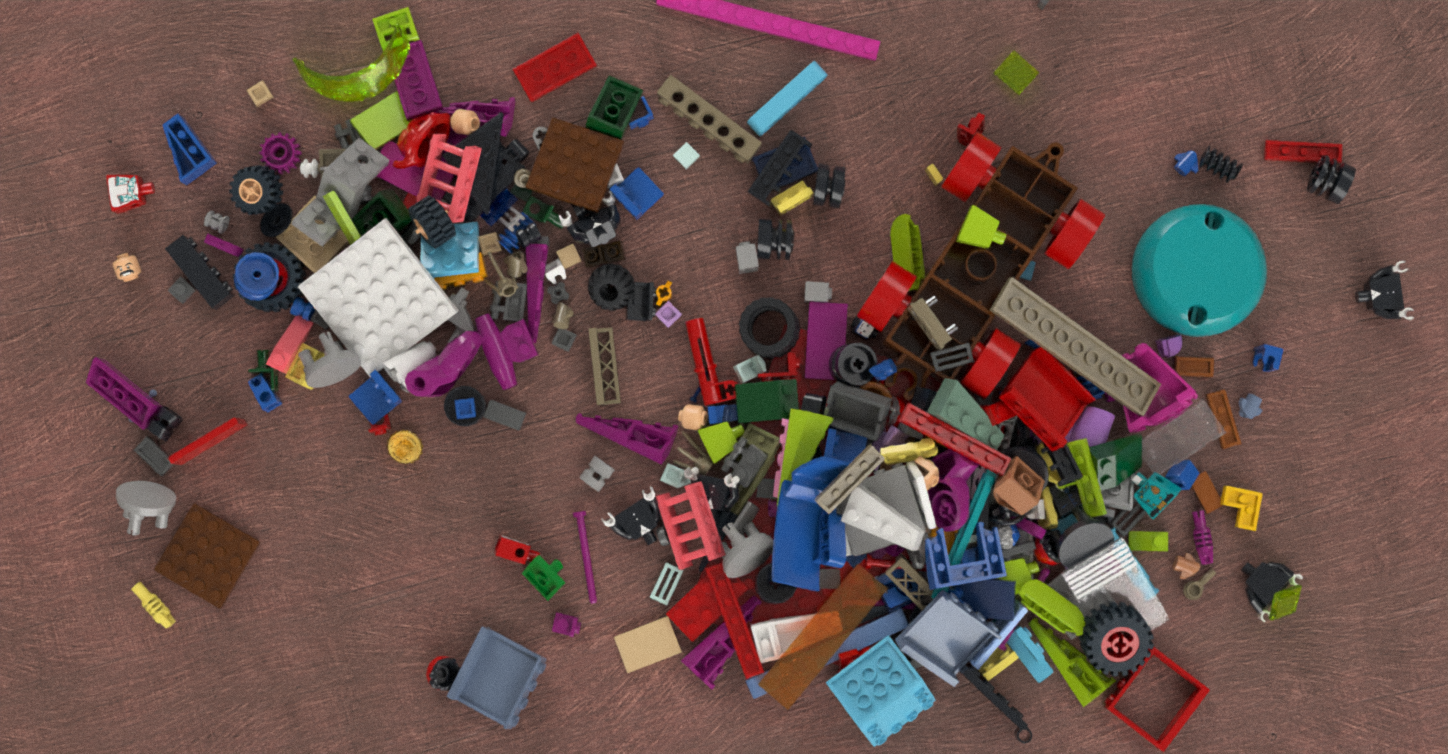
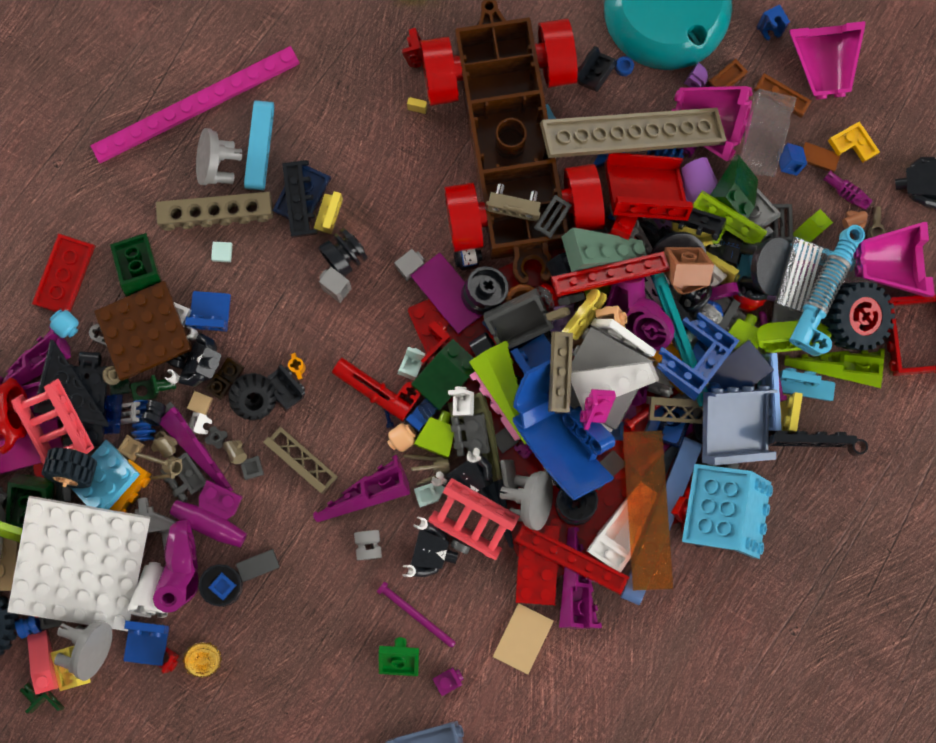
camera: 45 degrees left, 5 degrees down
(265, 396) = (54, 719): blue leg -> none
(464, 122) = (28, 372): light nougat head -> none
(507, 546) = (350, 663): red torso -> none
(522, 107) = (64, 324): none -> medium azure head
(643, 121) = (166, 253): blue bracket -> none
(668, 314) = (314, 378): lavender plate -> none
(673, 568) = (500, 595): light aqua tile -> none
(743, 74) = (209, 155): none -> light grey piece
(759, 307) = (378, 309): black tyre -> none
(759, 433) = (462, 401): none -> white bracket
(831, 186) = (349, 178): black wheel -> none
(852, 529) = (597, 407): none -> dark pink bracket
(883, 370) = (510, 273): blue piece -> none
(888, 433) = (558, 314): none -> dark tan tile
(908, 247) = (443, 171): lime brick -> none
(980, 229) = (487, 106): lime torso -> none
(1096, 269) = (595, 69): none -> black bracket
(1117, 593) = (821, 297): none -> medium azure piece
(1122, 286) = (624, 66): none -> blue tile
(1154, 492) = (785, 188): teal torso -> none
(1185, 624) = (896, 260): none -> dark pink cone
(1250, 406) = (792, 69): sand blue piece -> none
(1285, 422) = (829, 57): none -> dark pink cone

